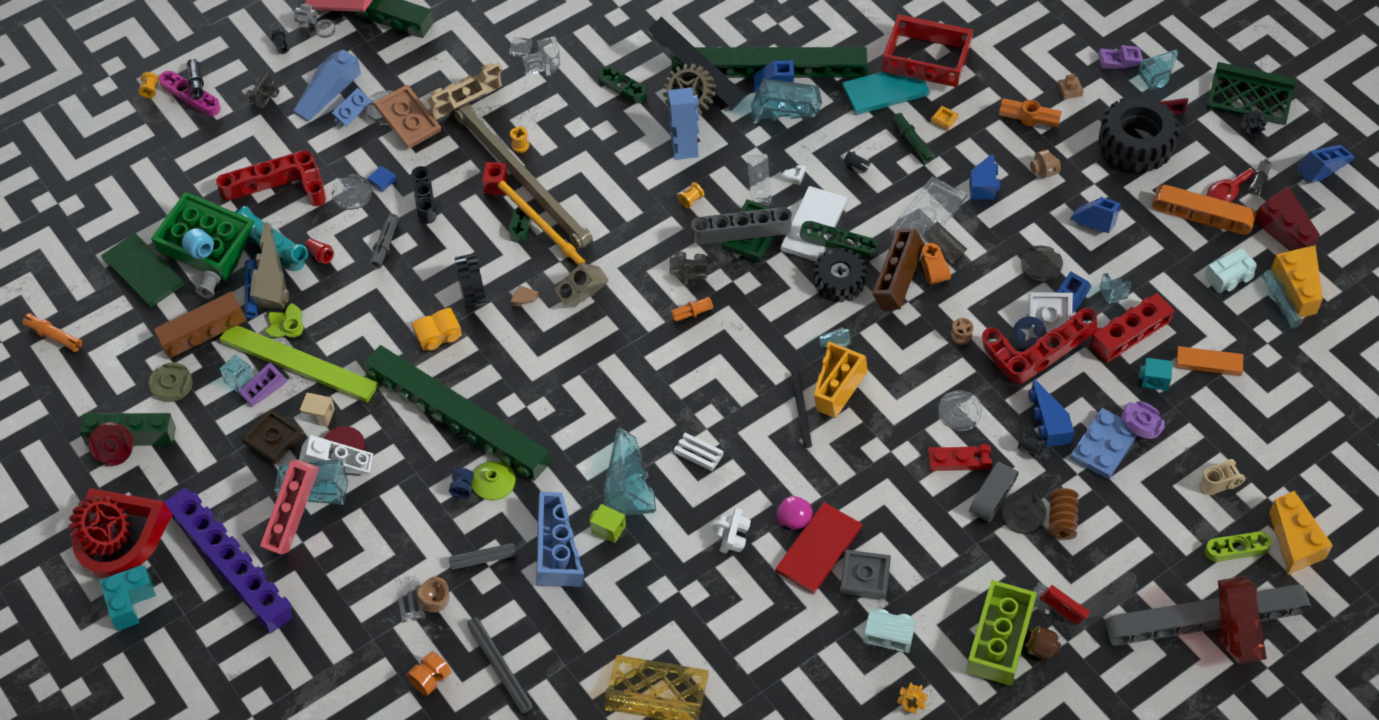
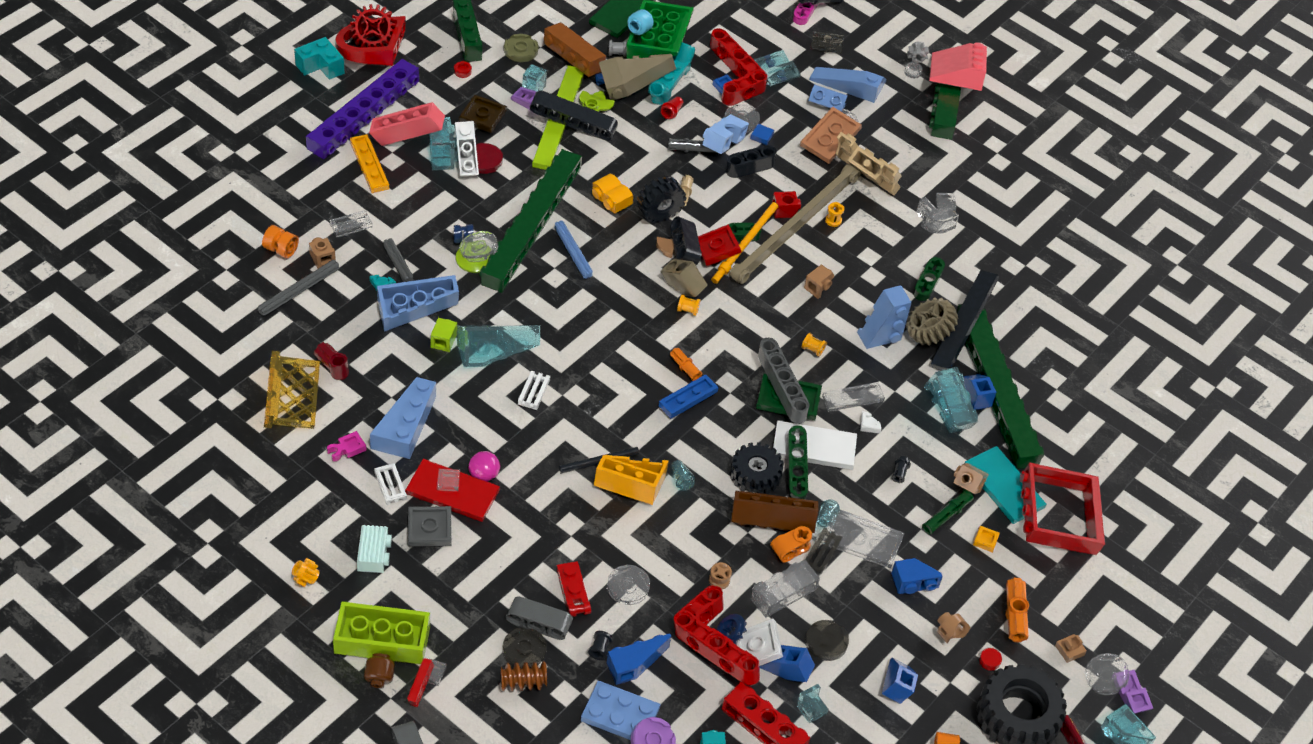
camera: 70 degrees right, 5 degrees down
(111, 443) = (449, 21): dark red tile -> none
(188, 447) = (462, 69): none -> red tile
(278, 38) = (888, 41): black pin -> none
(284, 142) = (778, 68): none -> clear light blue slope
(295, 197) = (719, 82): none -> blue tile
(310, 343) = (574, 115): none -> black beam
(317, 567) = (369, 163): none -> light orange tile
(318, 406) = (513, 134): tan panel -> none
(390, 211) = (722, 133): none -> light blue arch
(433, 594) = (350, 232): medium nougat piece -> none
(443, 261) = (686, 184): none -> tan axle
(453, 632) = (320, 248): none -> medium nougat brick
(492, 466) = (478, 246): none -> clear tile
(507, 382) = (573, 249): none -> medium blue axle
(511, 578) = (376, 280): none -> teal tile
(517, 278) = (685, 240): none -> black beam
(538, 248) = (718, 245): none -> red plate
(608, 172) = (818, 280): none -> medium nougat brick
(614, 290) = (688, 305): none -> light orange bush
(619, 640) = (334, 361): none -> dark red piece
(688, 268) = (727, 352): clear smoke hips -> none
(722, 574) = (404, 422): none -> medium blue wedge
(729, 529) = (454, 417): white hips -> none
(736, 315) = (688, 396): none -> blue plate
(746, 637) = (349, 445): none -> dark pink plate
(803, 609) = (394, 497): none -> white tile
(812, 546) = (448, 480): none -> clear tile
(881, 108) = (970, 478): none -> medium nougat brick
(906, 221) = (828, 512): none -> clear light blue cone
(984, 281) = (785, 588): none -> clear brick
(1076, 147) = (990, 659): none -> red tile
(1104, 67) = (1107, 674): none -> clear tile

